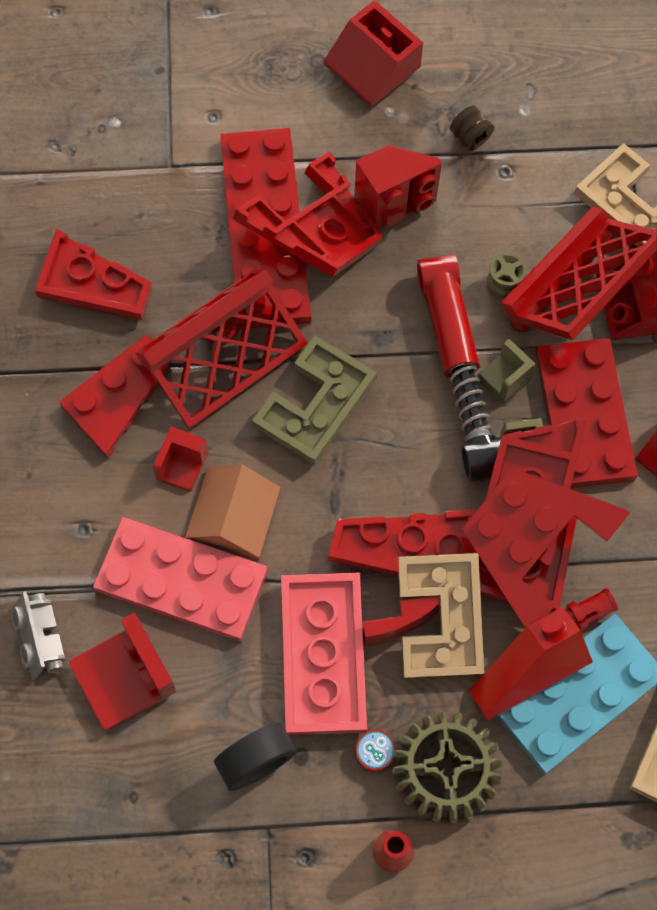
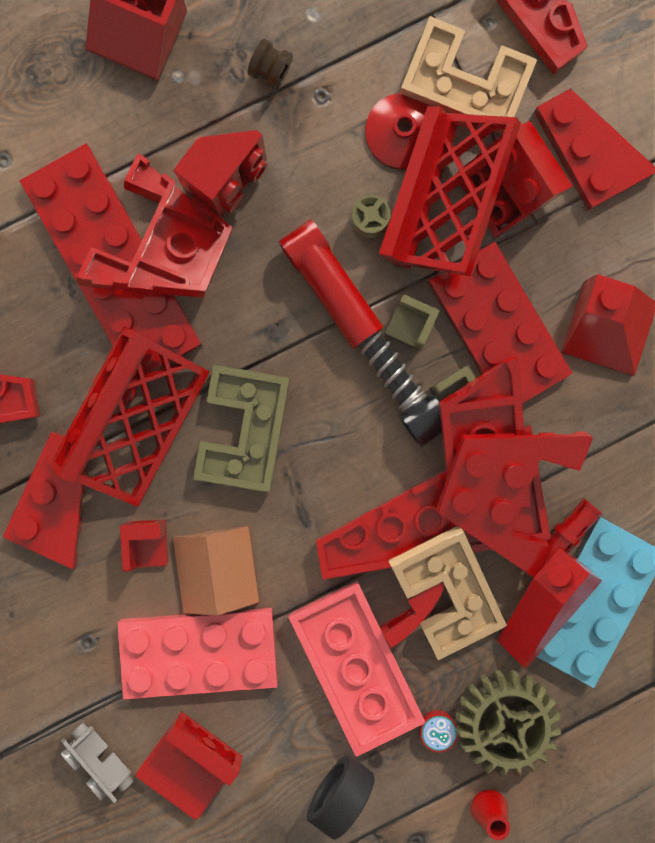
camera: 20 degrees left, 20 degrees up
(546, 222) = (382, 133): none -> red dish

